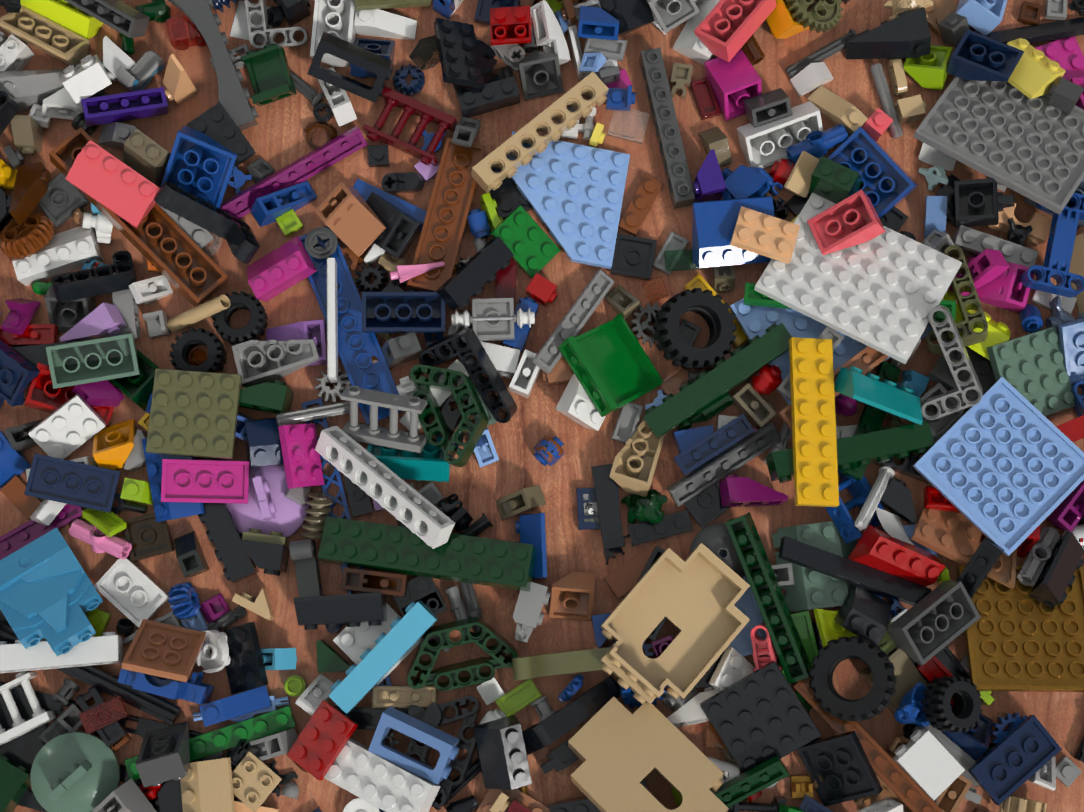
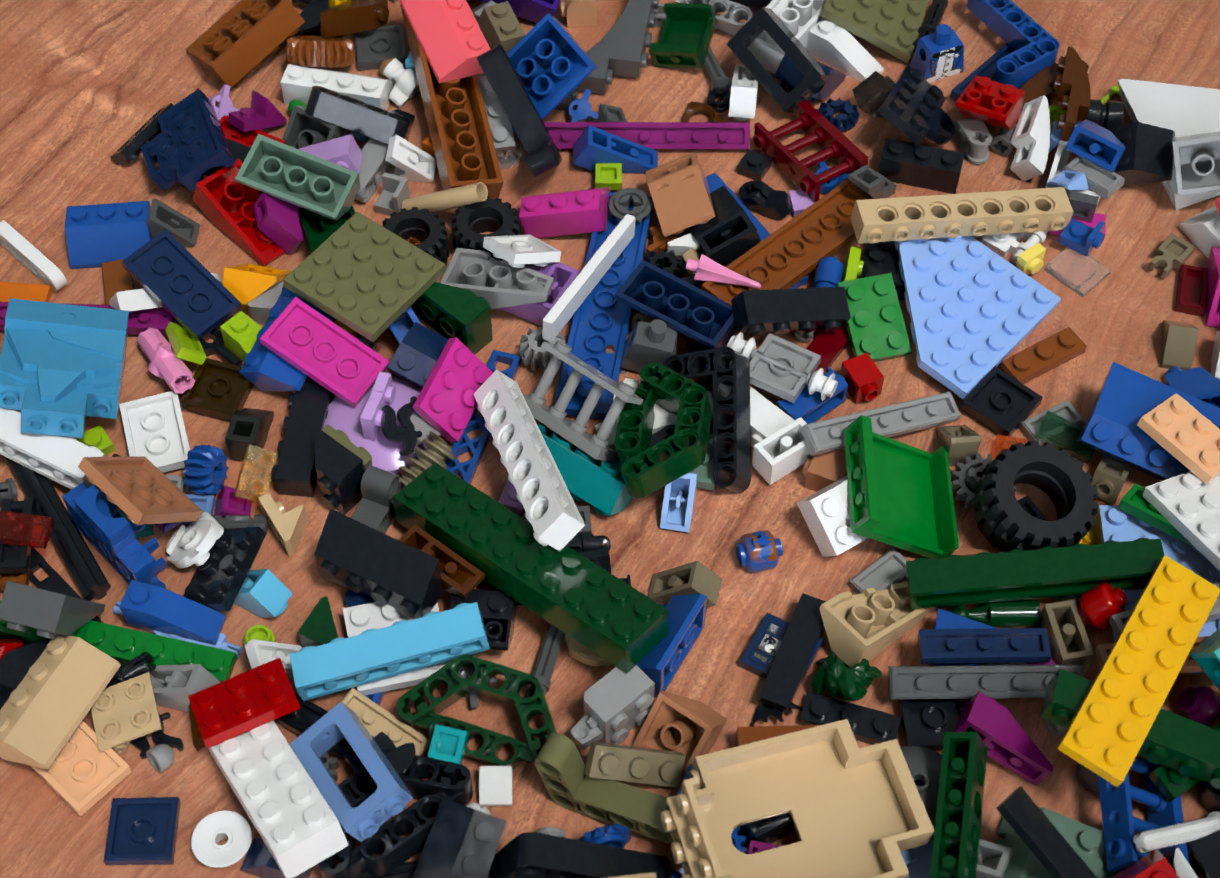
camera: 35 degrees right, 25 degrees down
(67, 428) = (222, 236): white plate -> none
(217, 584) = (255, 473): none -> clear yellow hips
(220, 127) = (600, 47): black plate -> none
(278, 327) = (521, 250): none -> white plate
(289, 511) = (405, 433): none -> black piece
(313, 413) = (505, 362): light grey axle -> none
(358, 499) = (491, 474): black plate -> none
(453, 690) = (448, 744): none -> teal plate
(457, 604) = (526, 655): light grey axle -> none
(518, 698) = (526, 816): lime tile -> none
(540, 74) = (996, 168): dark grey slope -> none
(562, 636) = (634, 764): none -> dark tan plate
(666, 128) = (1124, 290): dark grey brick -> none
(709, 180) = (1150, 352): dark purple slope -> none

